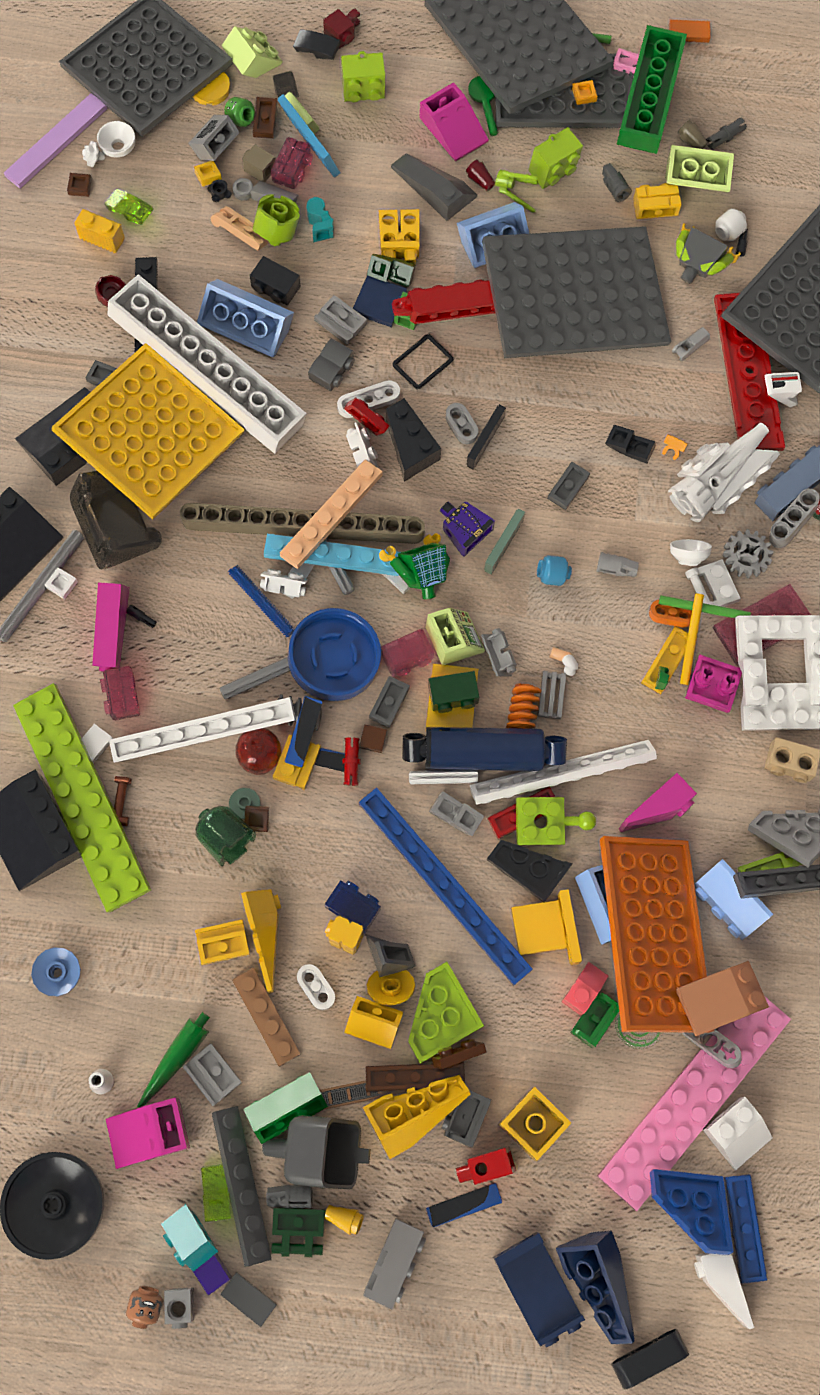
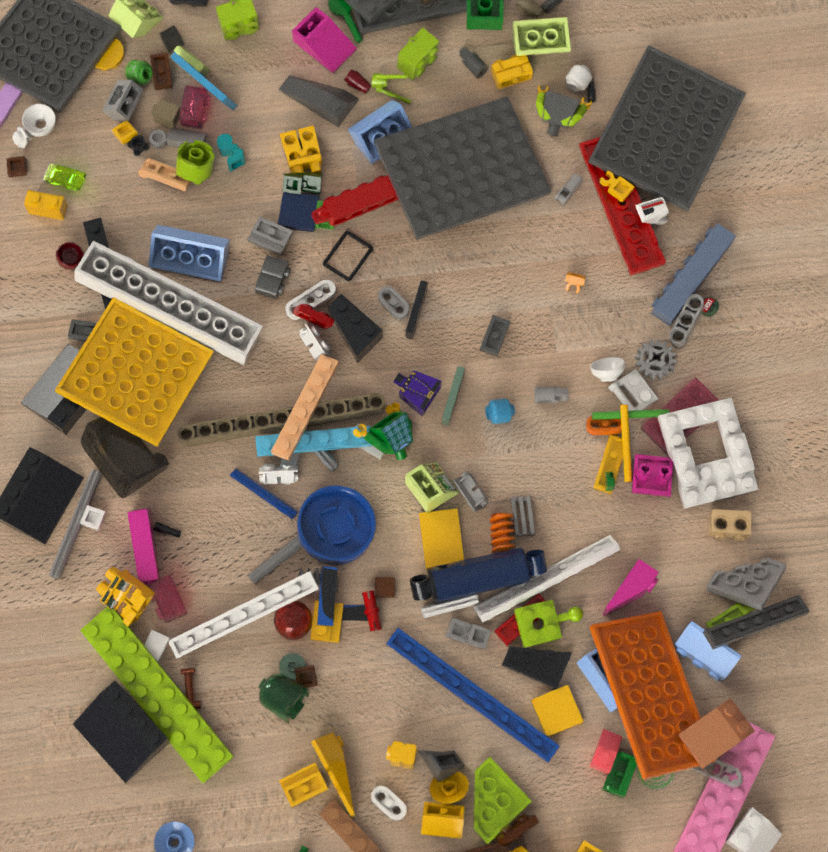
camera: 10 degrees left, 0 degrees up
(73, 676) = (125, 595): none -> yellow hips
(275, 281) = (206, 215): black brick -> none
(353, 905) = (402, 729): clear blue brick -> none
(389, 701) = (390, 553): dark grey plate -> none
(407, 653) = (396, 509): clear pink brick -> none
(453, 691) = (442, 533): dark green brick -> none
(567, 658) = (528, 483): arm -> none
(569, 927) = (582, 705): yellow tile -> none
(630, 445) = (537, 288): black slope -> none
(721, 474) = (618, 298): white piece -> none
(750, 352) = (618, 187): none -> yellow plate

